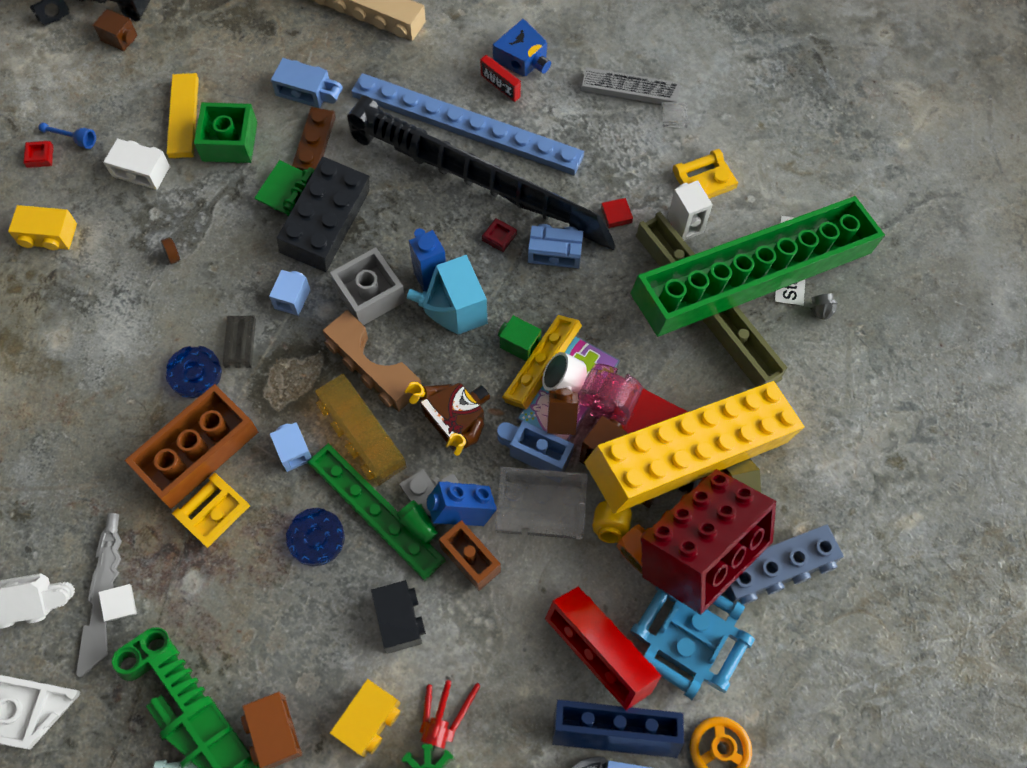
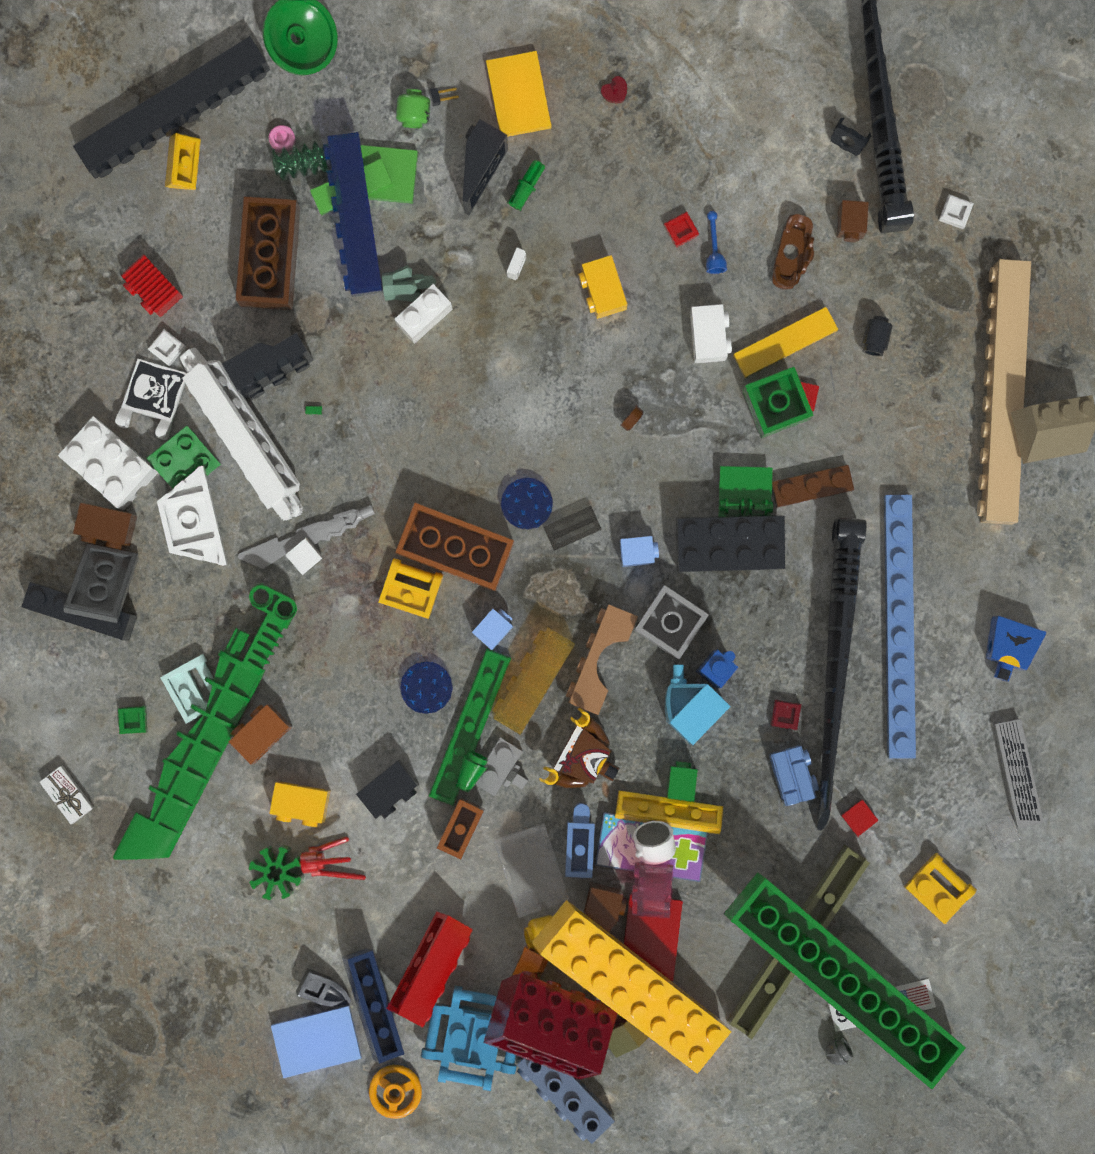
camera: 70 degrees right, 20 degrees up
(101, 72) = (796, 233): none -> reddish brown piece
(219, 48) = (876, 336): none -> black brick
(304, 83) = (873, 445): medium blue brick -> none
(457, 502) = (500, 802): blue brick -> none
(500, 78) = (966, 638): tile -> none
(562, 412) = (615, 857): reddish brown brick -> none
(689, 210) = (883, 890): white brick -> none

